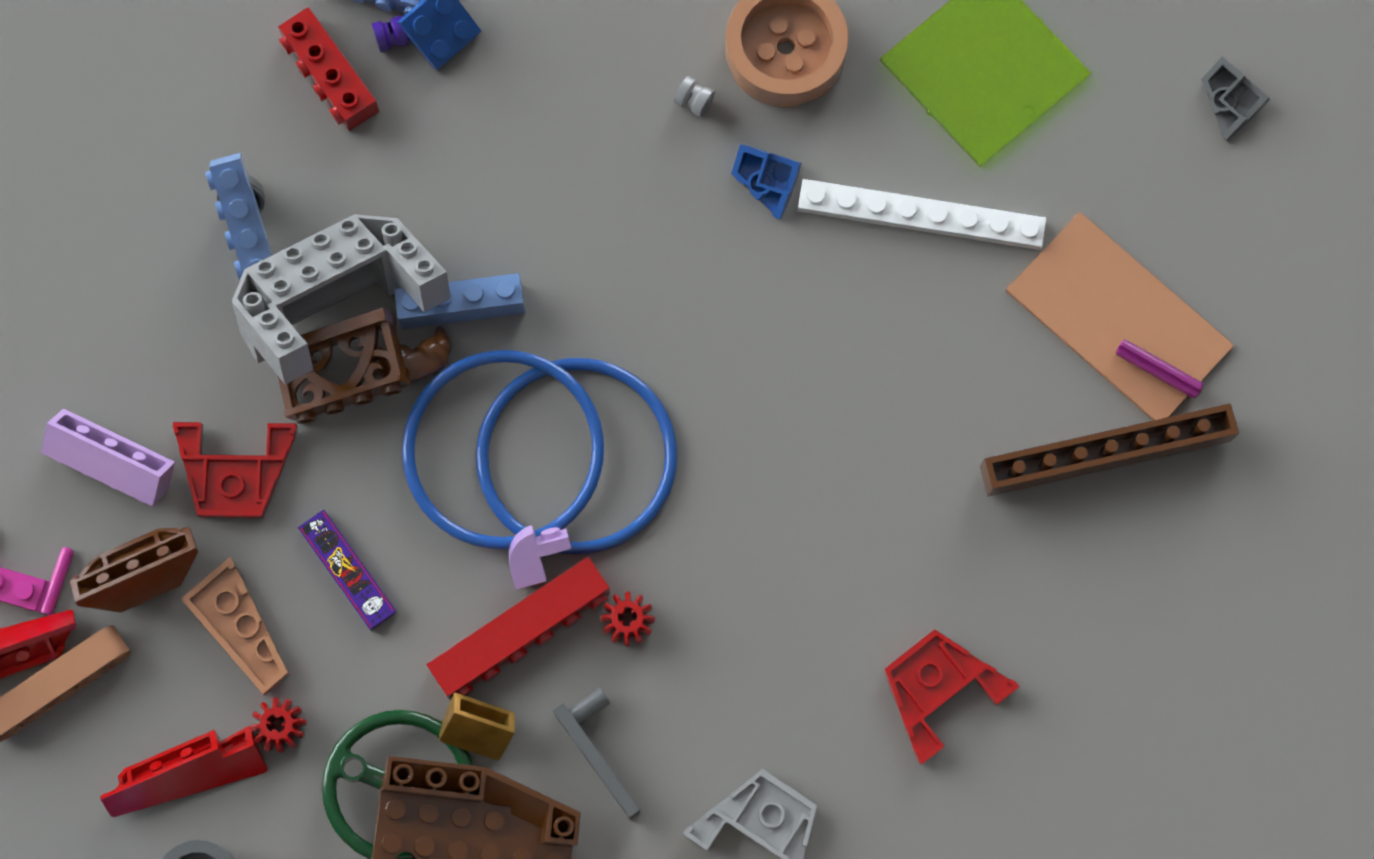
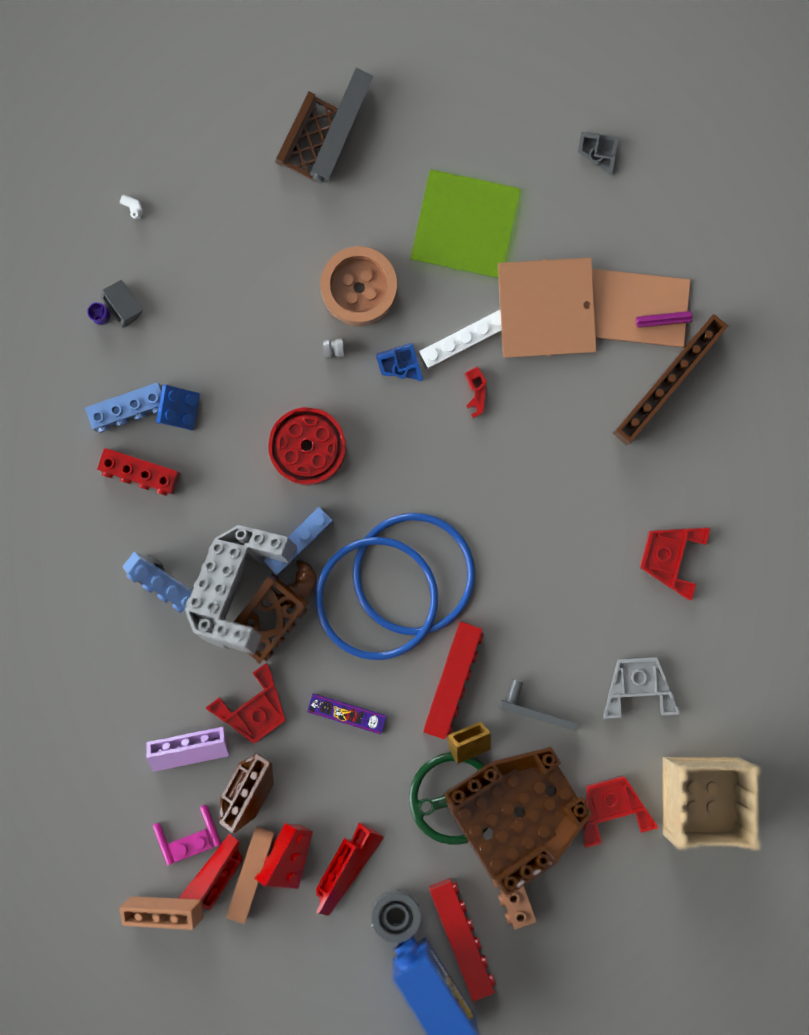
camera: 40 degrees left, 10 degrees up
(119, 695) = (287, 858): none -> red wedge
(234, 621) = (313, 780): nougat wing -> none
(283, 713) = (378, 818): red gear -> none
(389, 34) = (152, 432): dark purple wheel -> none
(527, 550) = (429, 638): lavender brick -> none
(569, 222) = (310, 466): none -> red brick
(636, 626) = (507, 637): red gear -> none
(834, 294) = (479, 396): none -> red piece
(1012, 242) = (546, 307): none -> nougat piece

